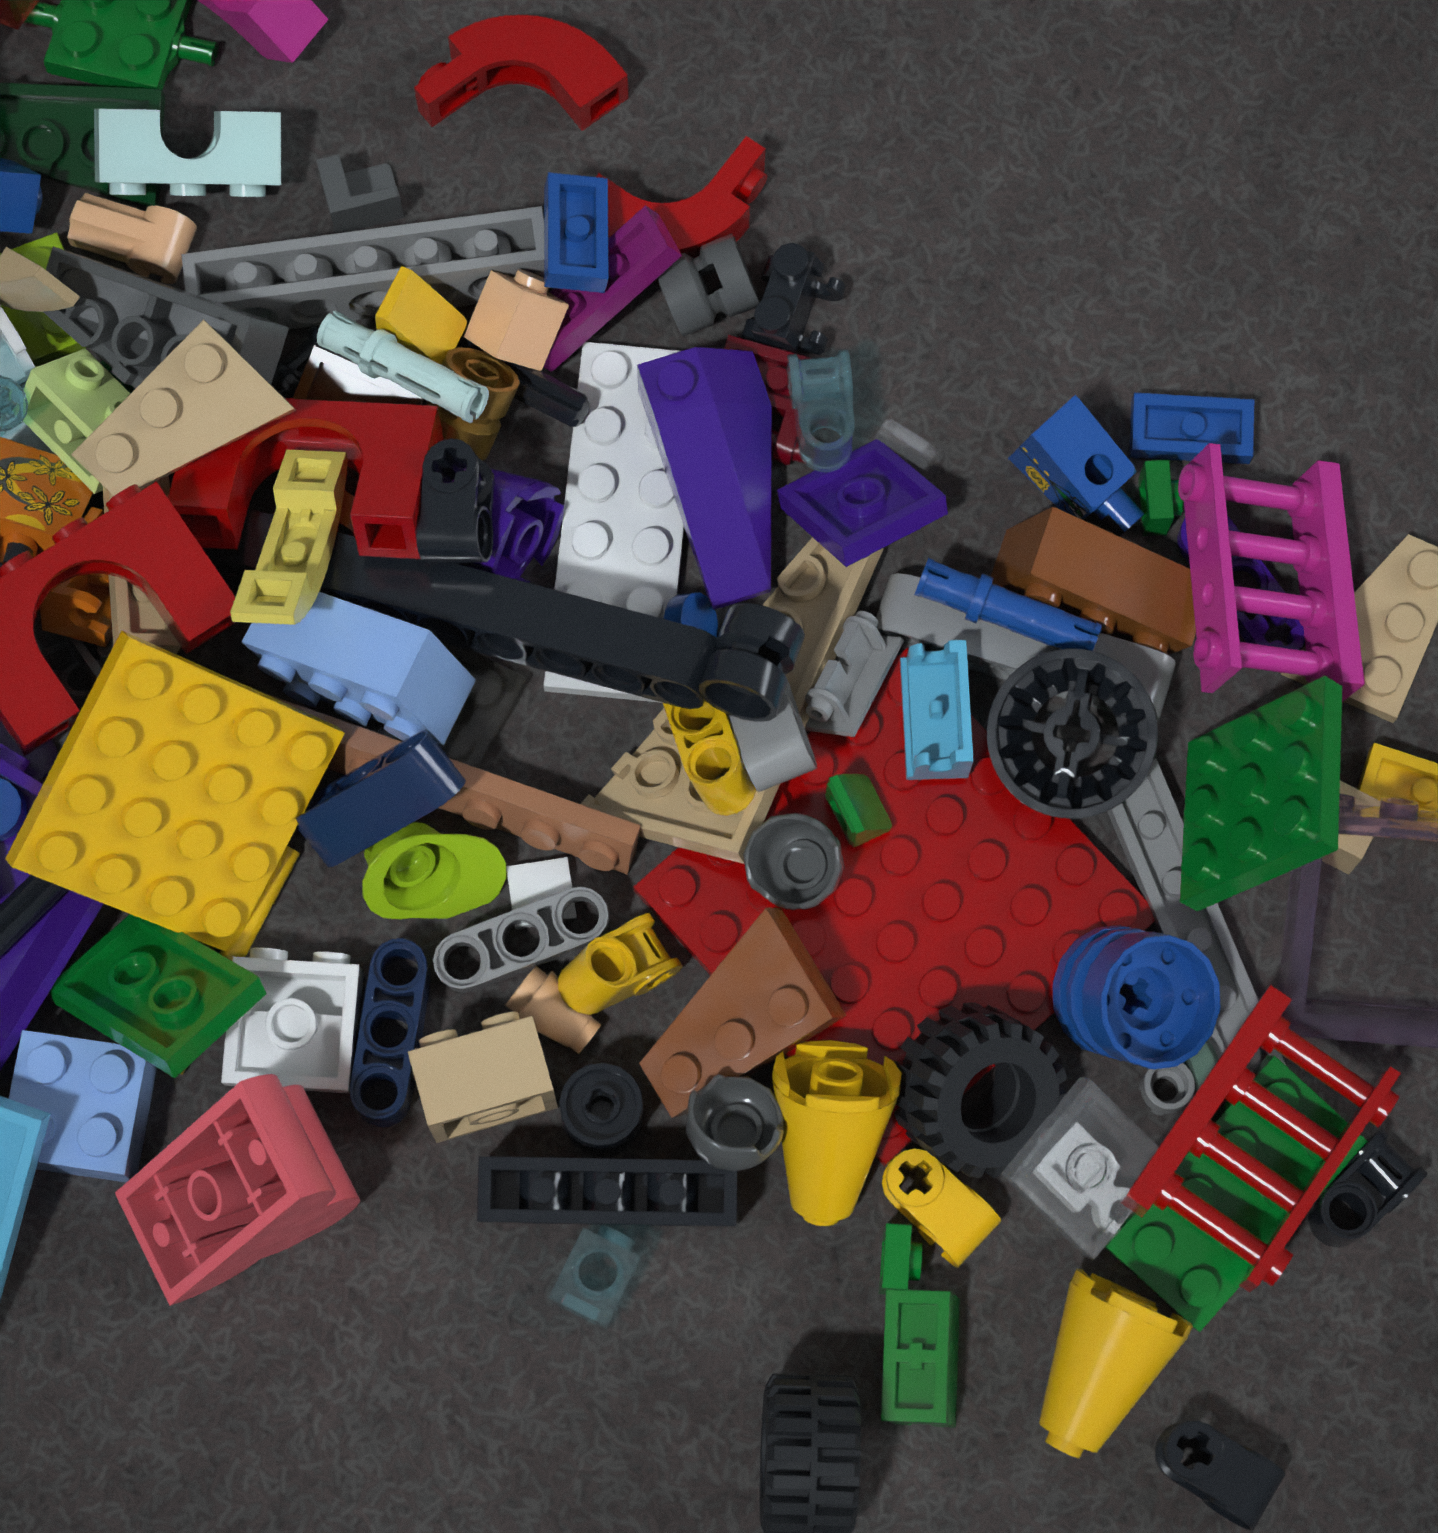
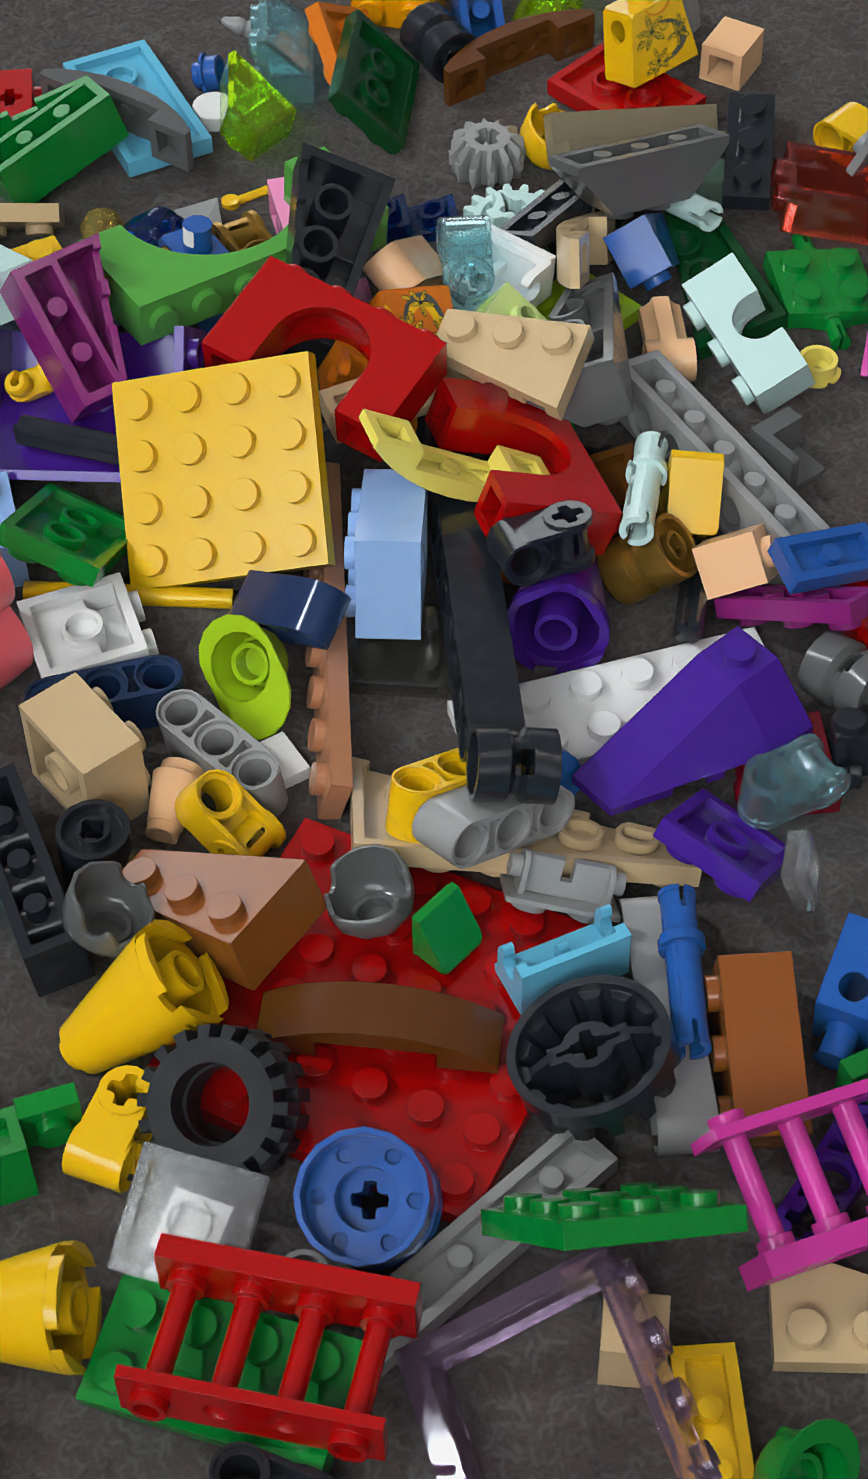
camera: 70 degrees right, 25 degrees down
(243, 83) = (822, 364): none -> light yellow plate
(935, 916) = (384, 1018): none -> reddish brown slope

